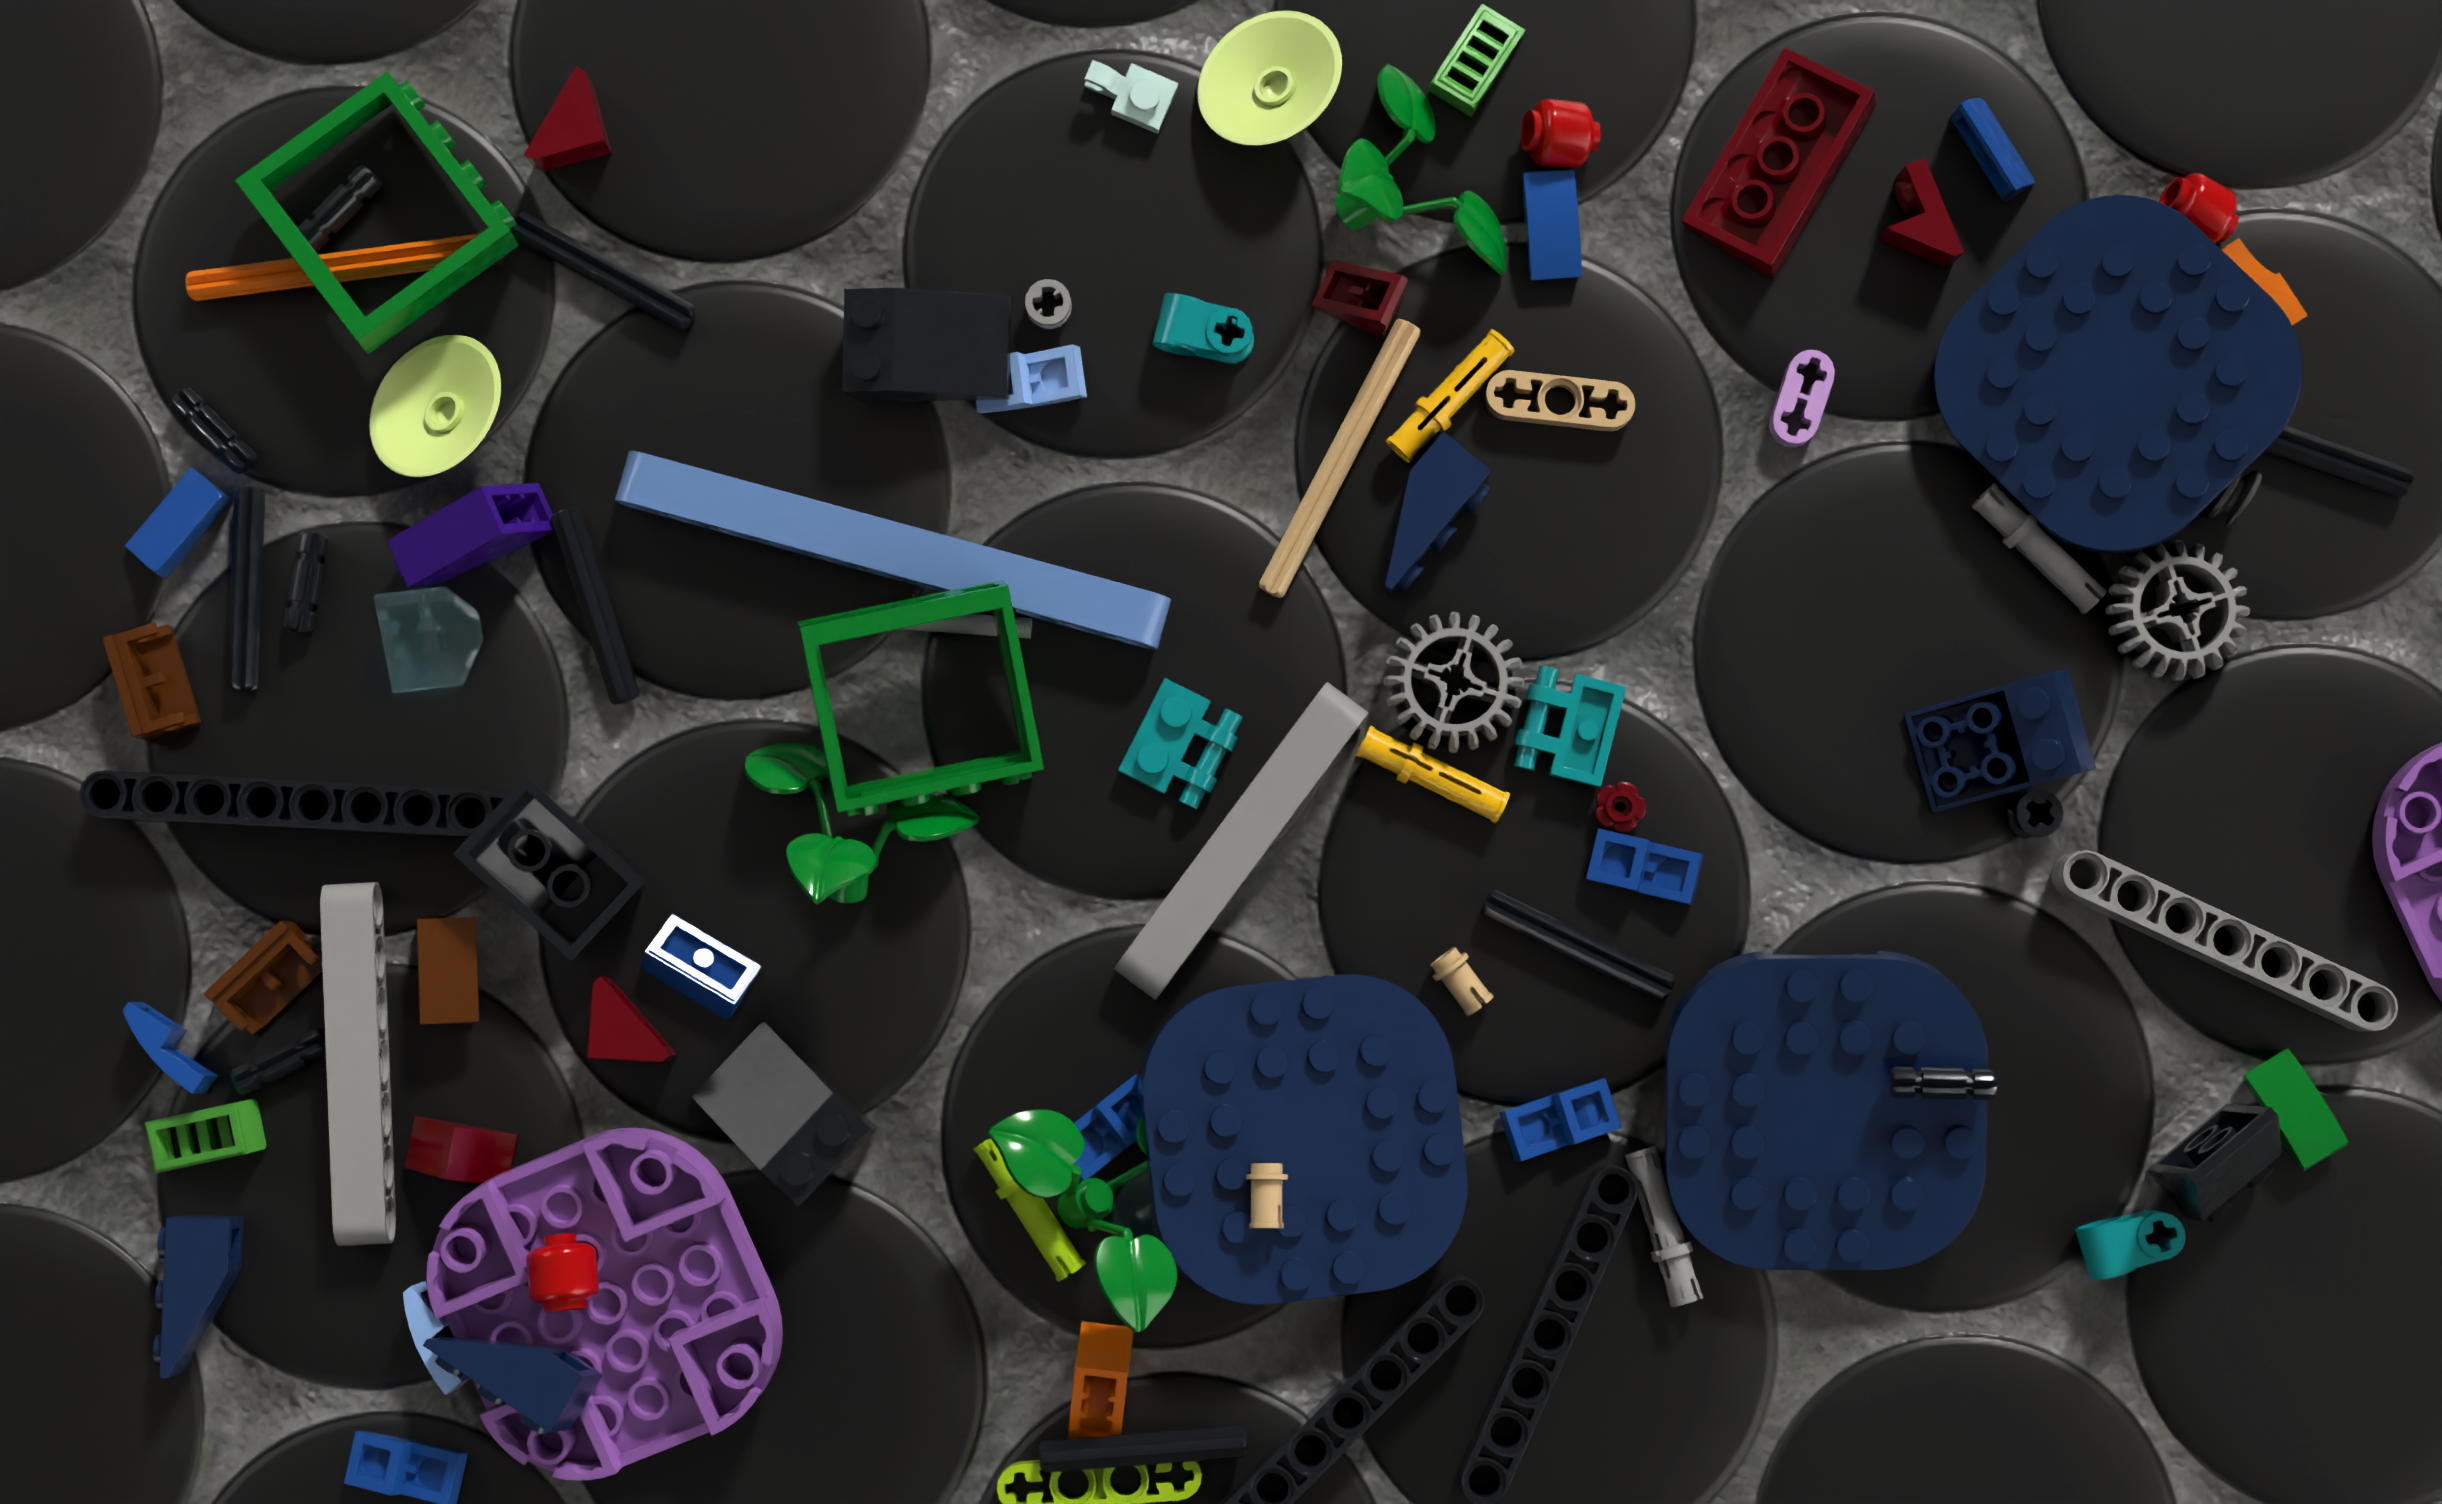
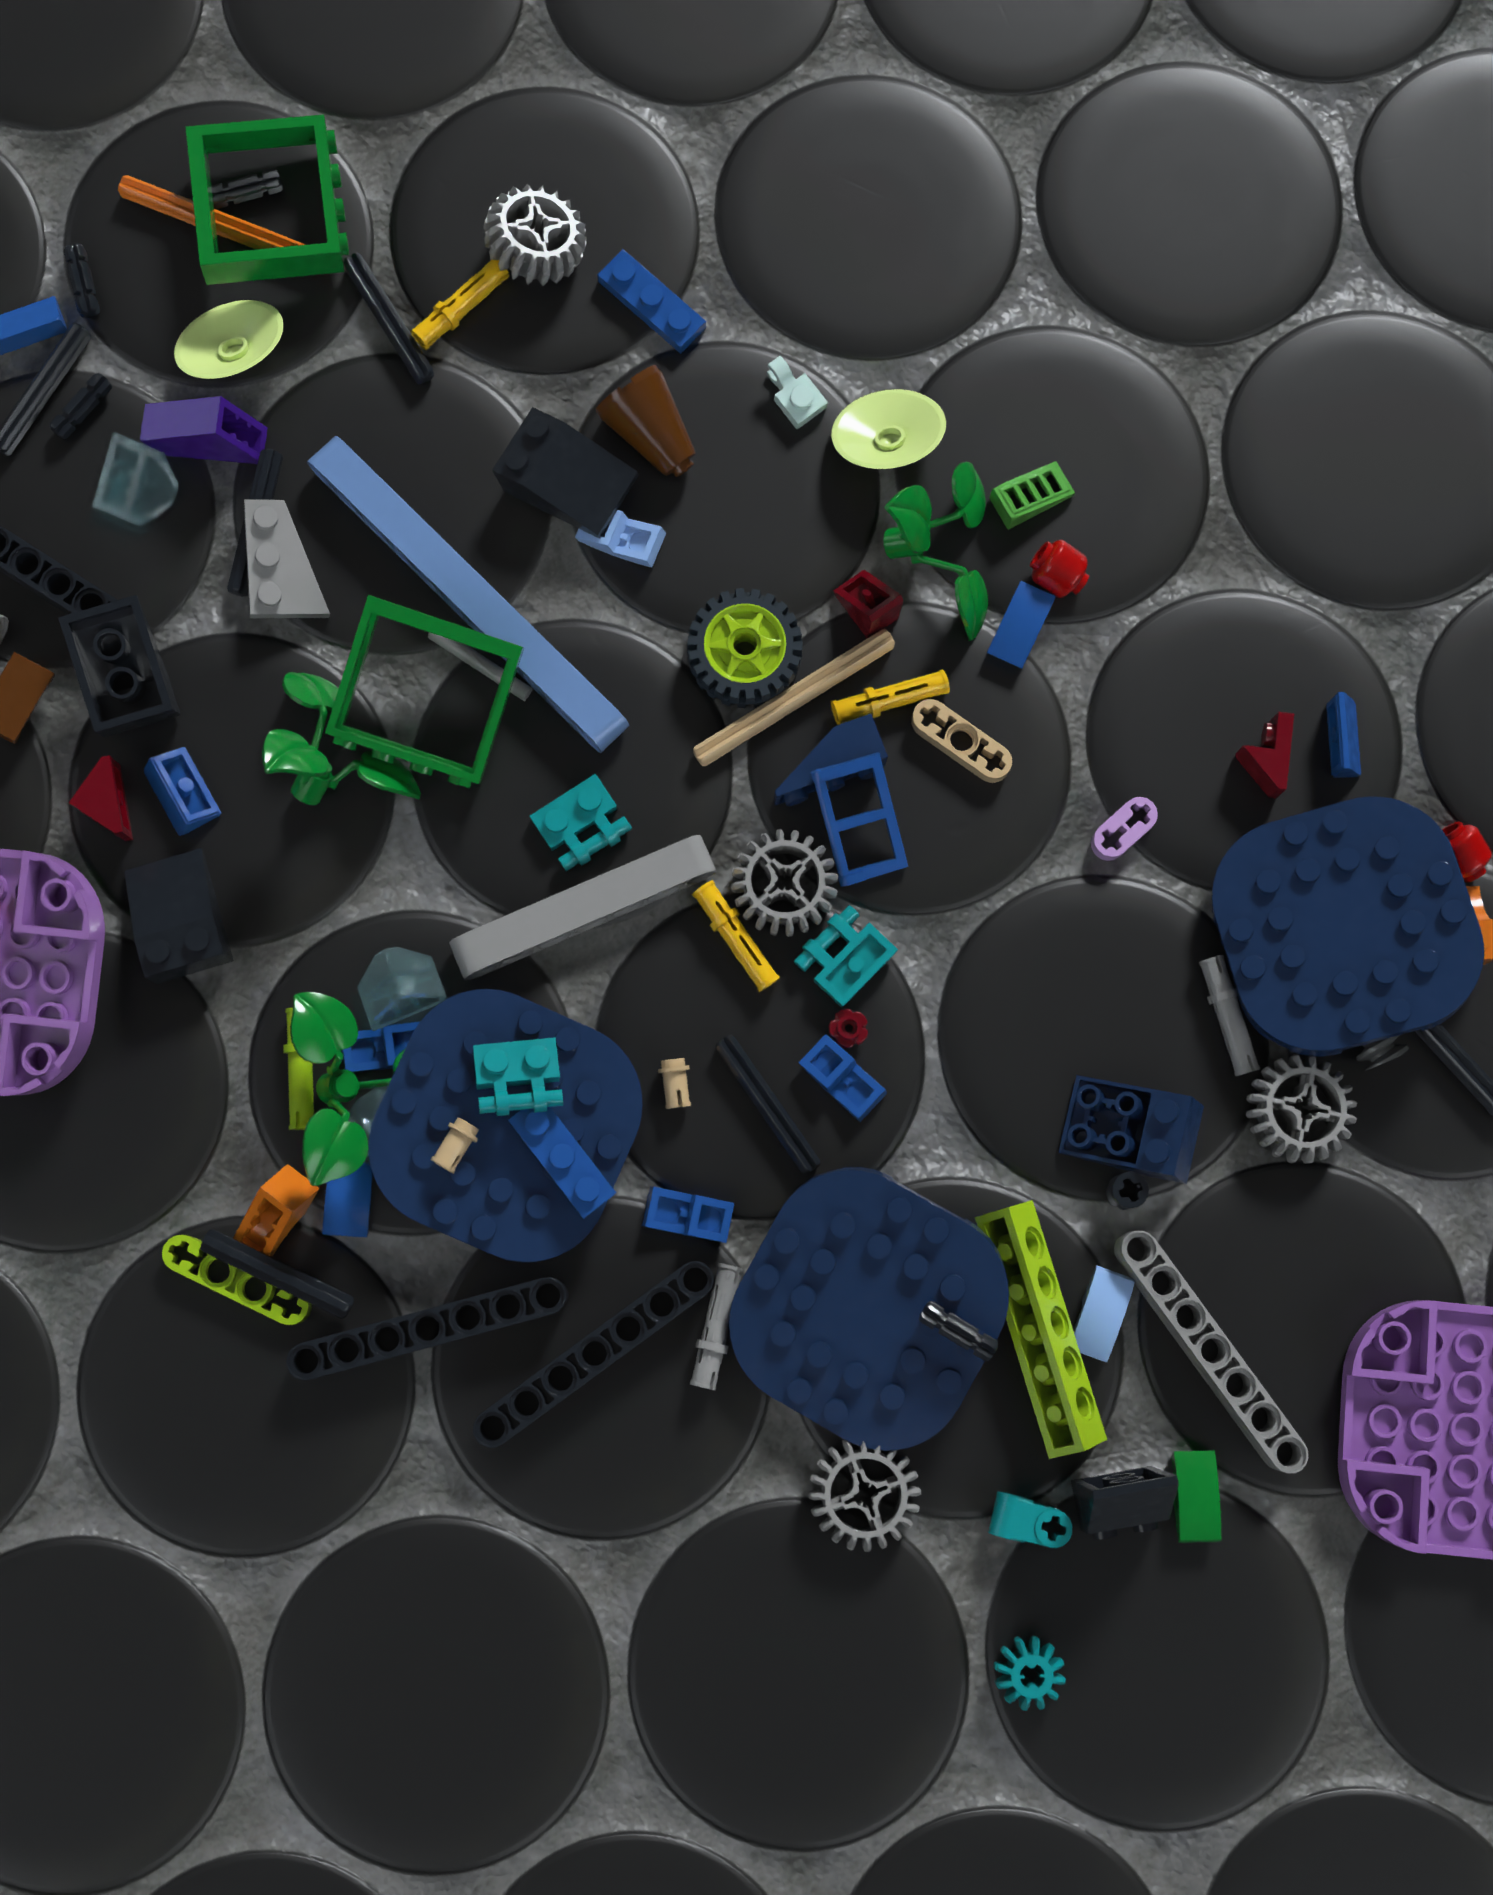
camera: 25 degrees right, 5 degrees down
(571, 128) = (422, 217): dark red slope -> none
(655, 642) = (277, 565): none -> light grey wing
(677, 207) = (451, 311): none -> yellow pin
(719, 93) = (538, 228): none -> light grey gear
(899, 74) = (651, 301): none -> blue plate
(989, 227) = (650, 421): none -> reddish brown cone
(1035, 295) = (657, 484): light grey bush -> none
(1086, 1049) = (399, 986): none -> clear light blue slope
(1179, 1332) = (348, 1204): none -> blue slope
(1194, 329) = (748, 560): teal piece -> none
(1258, 393) = (740, 619): none -> wheel
(1283, 1065) = (515, 1065): none -> teal plate
(1390, 1139) = (563, 1159): none -> blue plate
(1474, 587) = (833, 827): none -> blue window
(1780, 161) = (1196, 668): dark red slope -> none
(1967, 1344) = (845, 1499): none -> light grey gear
(2031, 1027) = (1044, 1334): none -> lime brick
(2081, 967) = (1102, 1312): none -> light blue slope
(2223, 1425) = (1029, 1689): none -> teal gear

